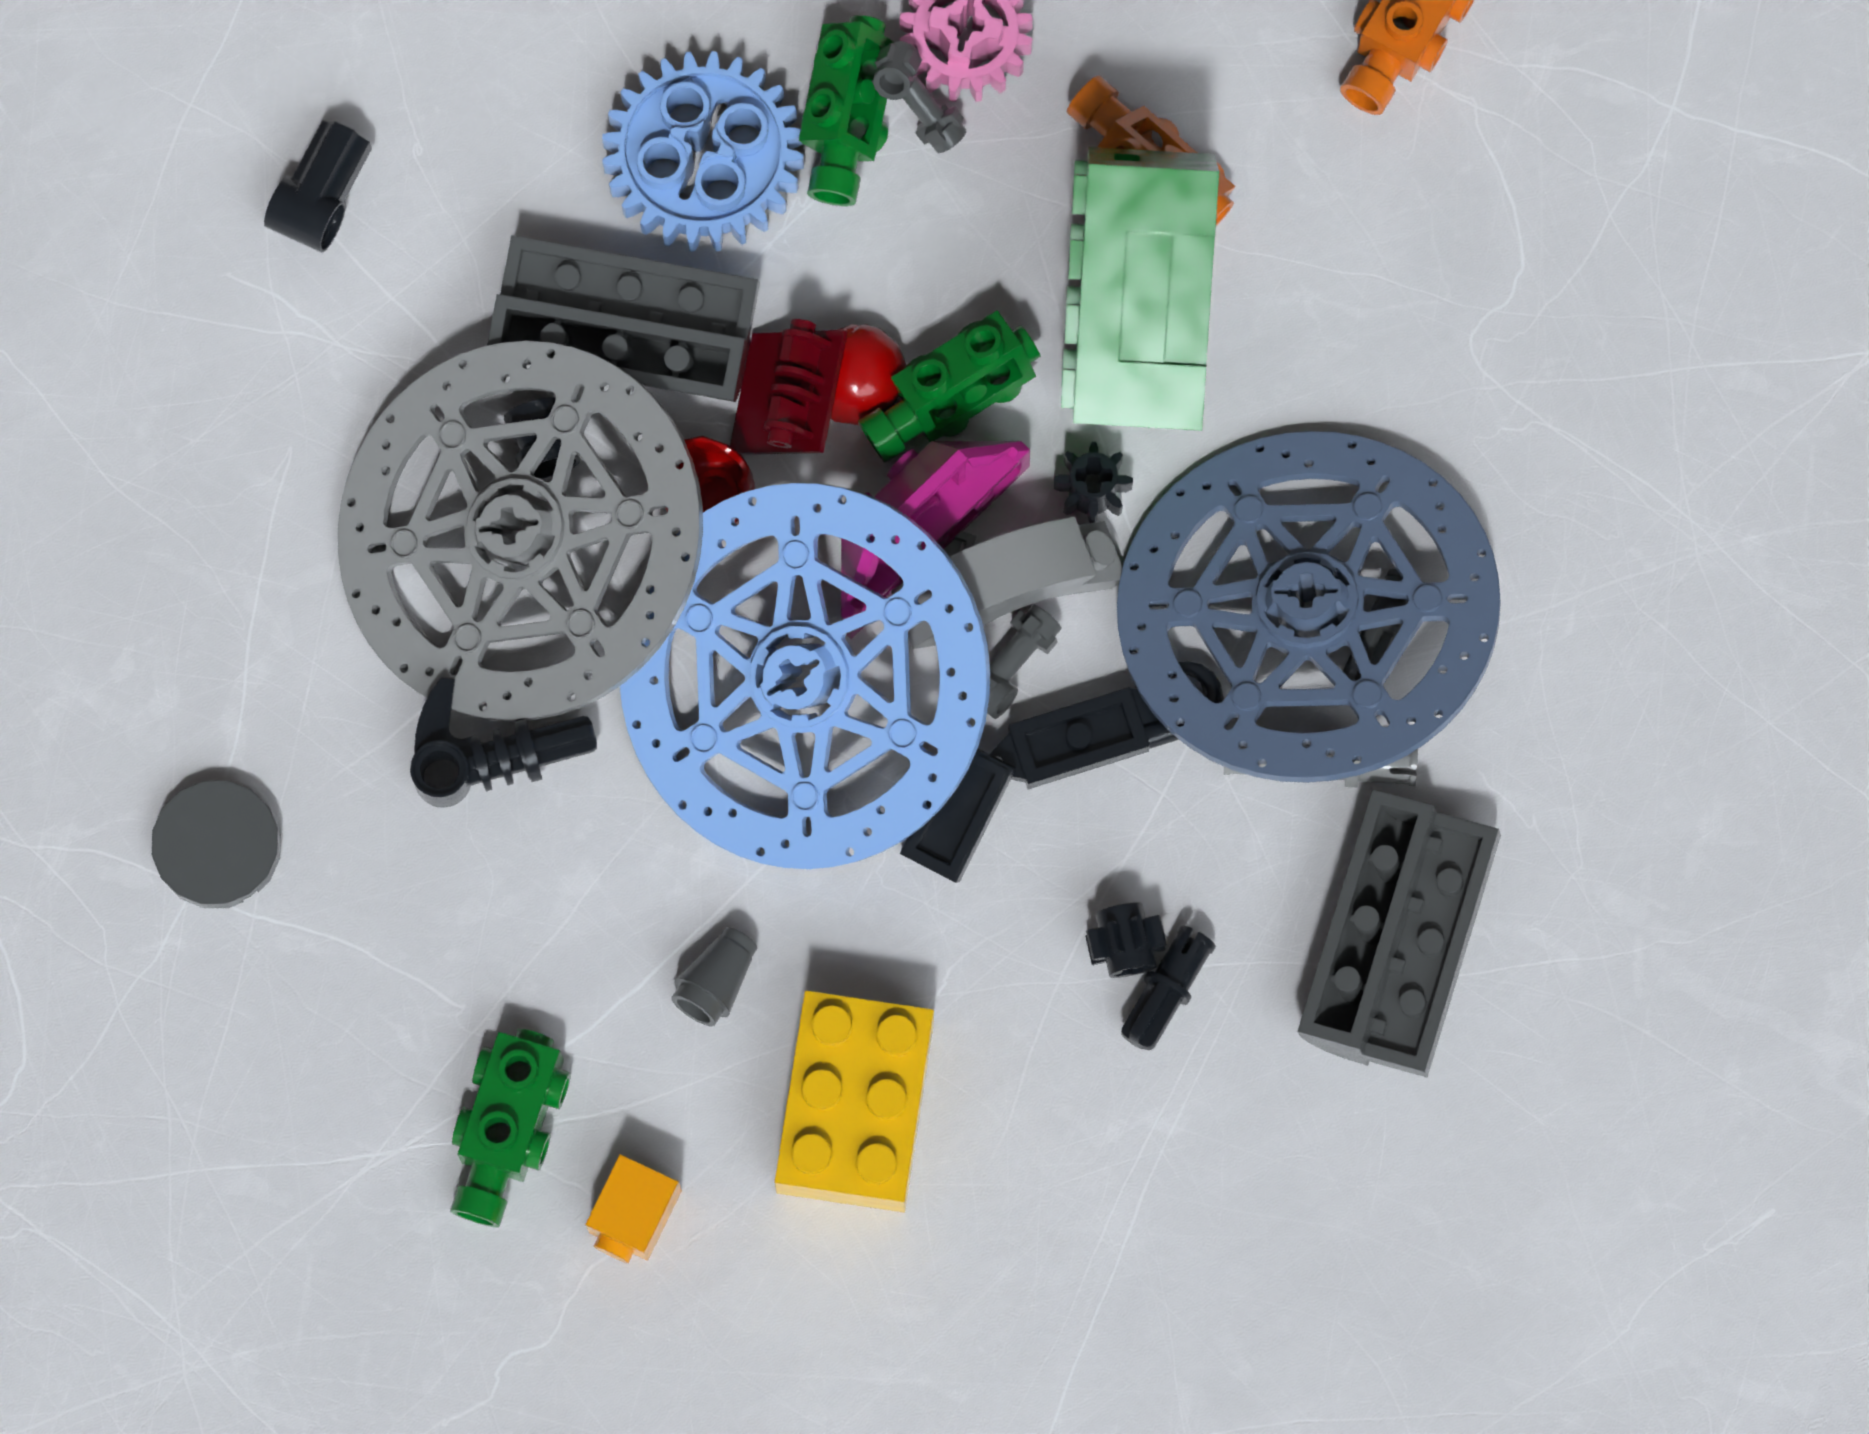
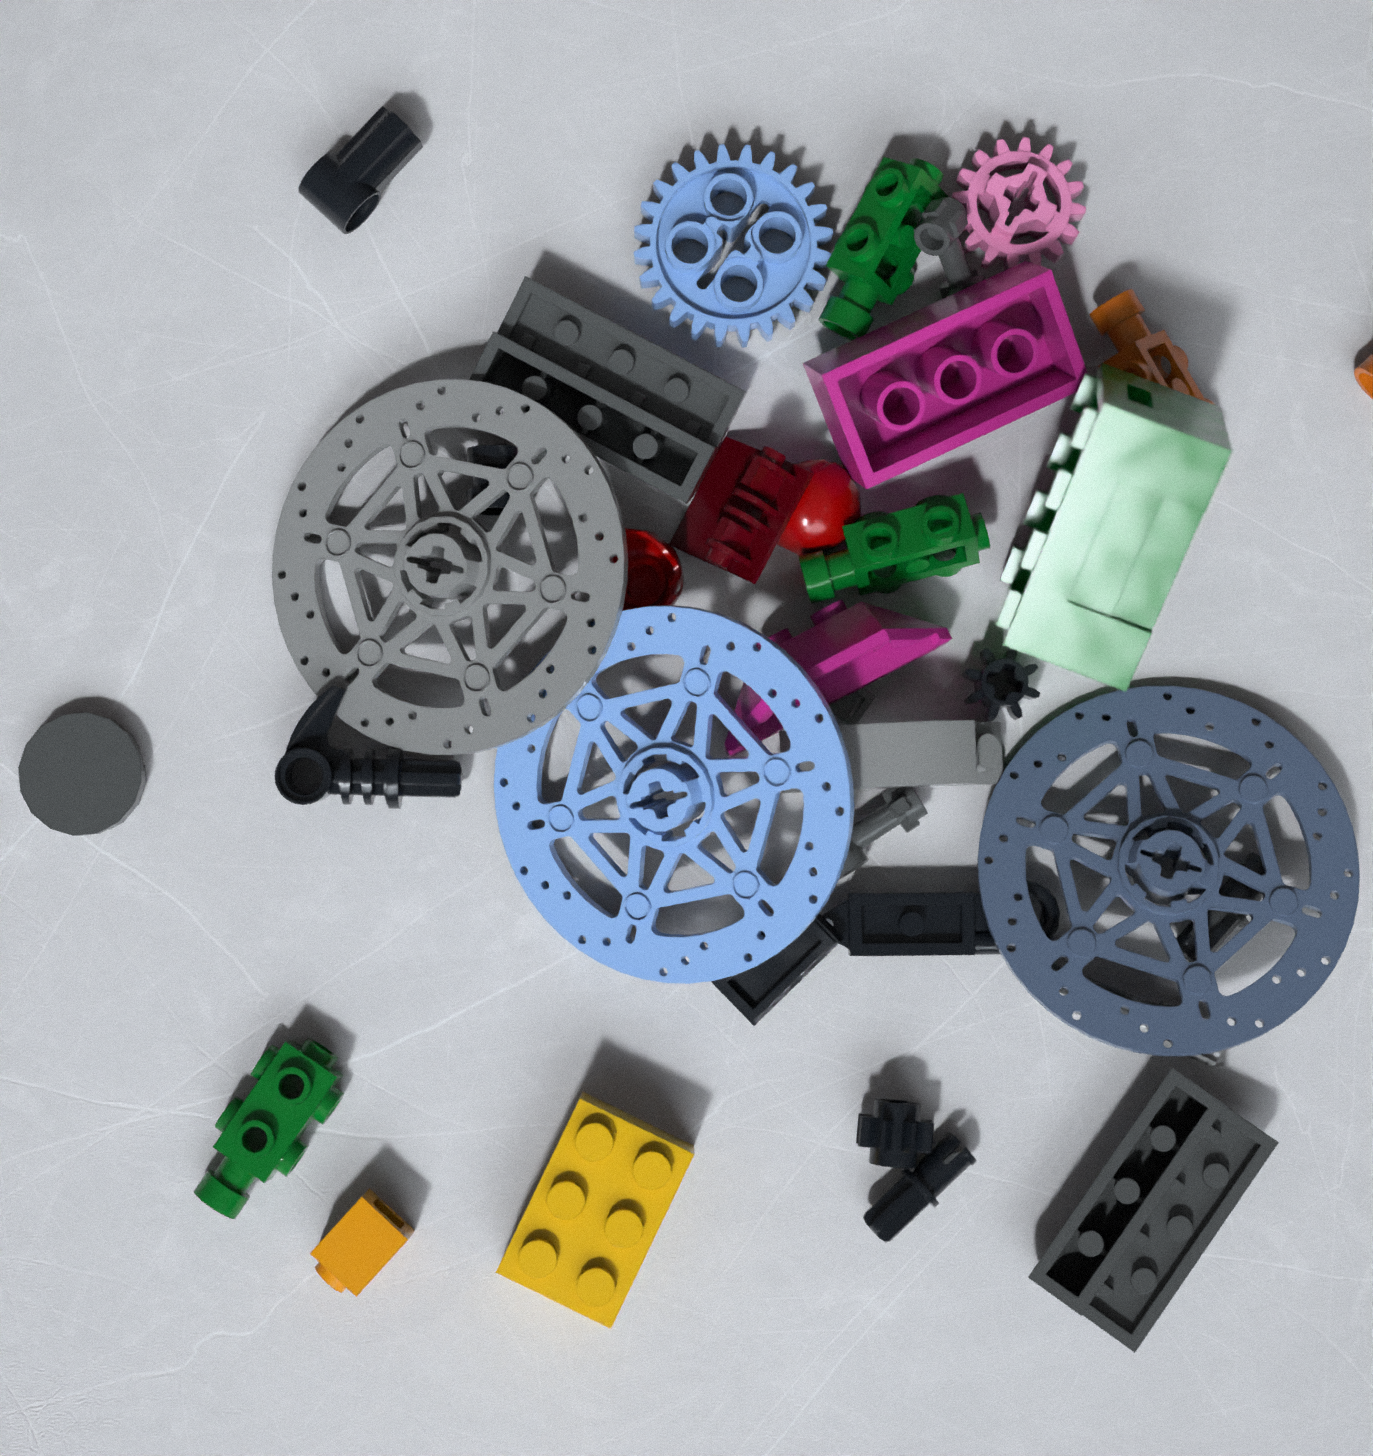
camera: 15 degrees right, 10 degrees up
(714, 978) = (504, 1046): dark grey cone -> none
(946, 205) = (947, 373): none -> dark pink brick

